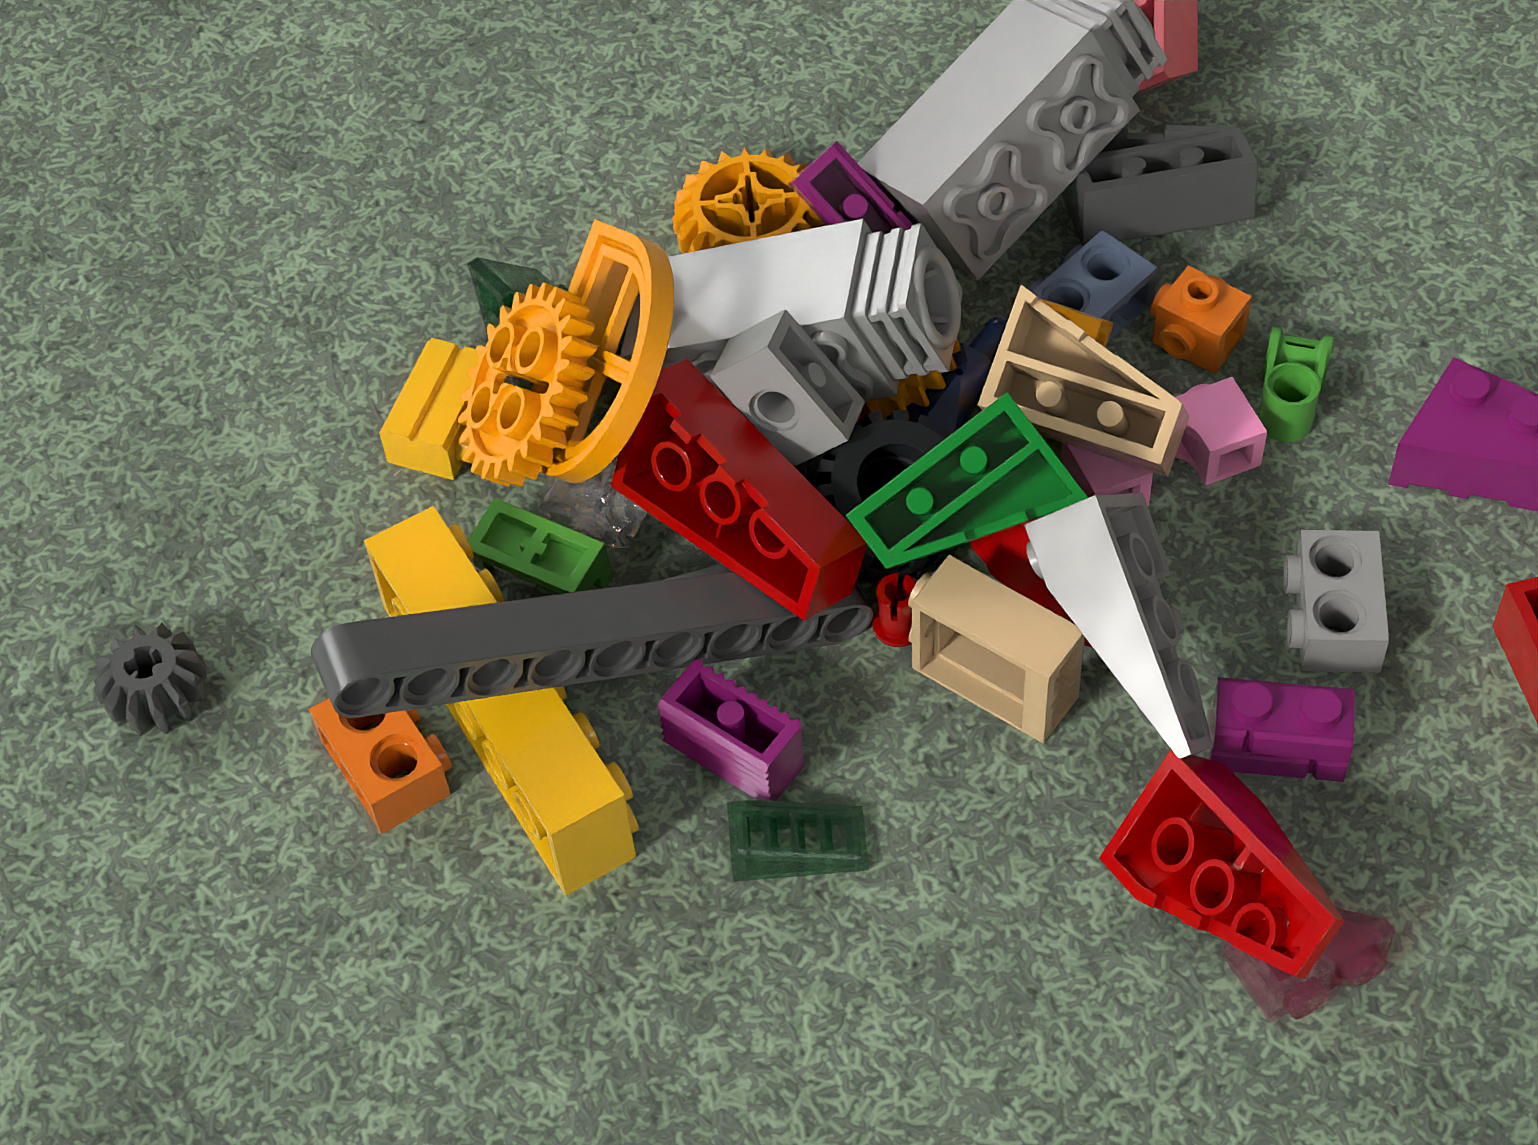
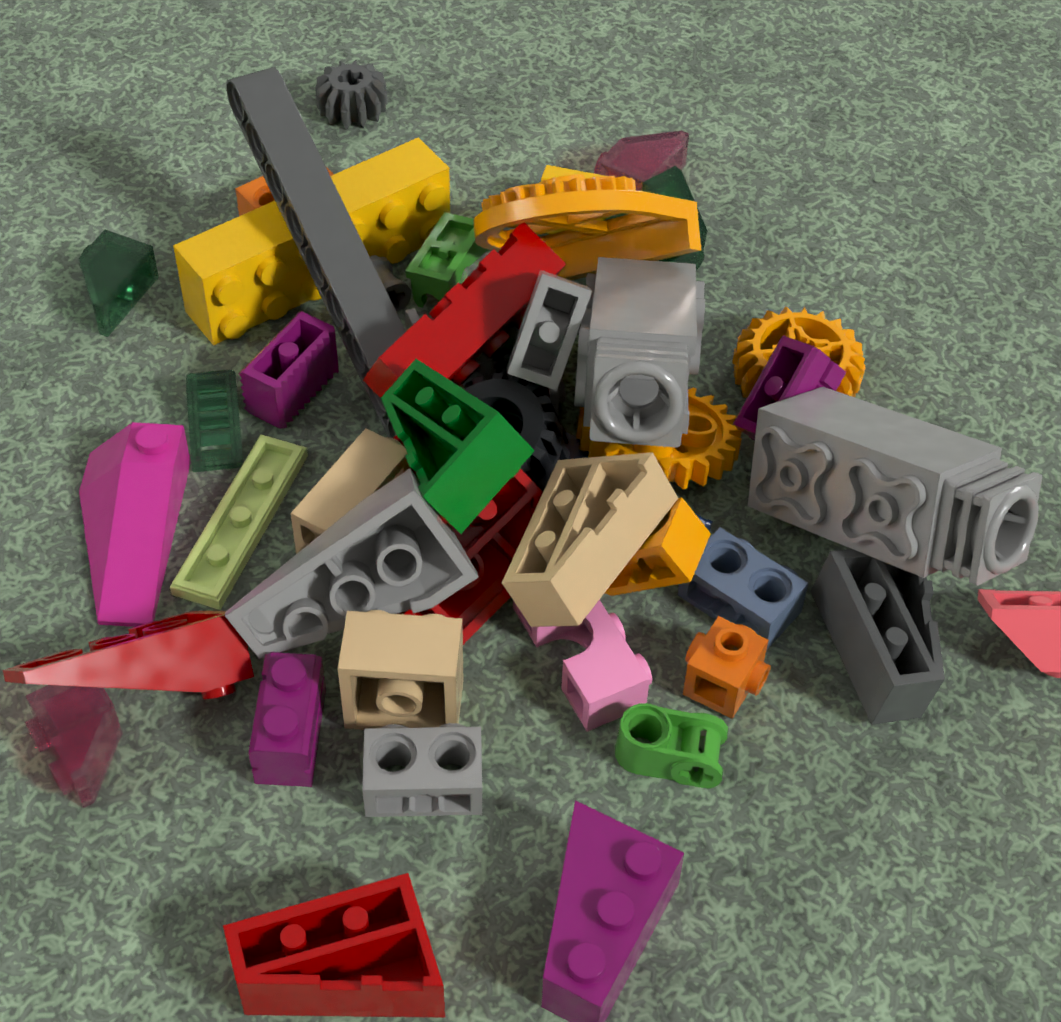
camera: 80 degrees right, 5 degrees down
(379, 340) = (644, 156): none -> clear pink slope
(513, 977) = (116, 277): none -> clear green slope
(947, 924) = (130, 518): none -> dark pink wedge
(959, 806) = (239, 522): none -> yellowish green tile
(1232, 595) = (400, 670): none -> tan brick

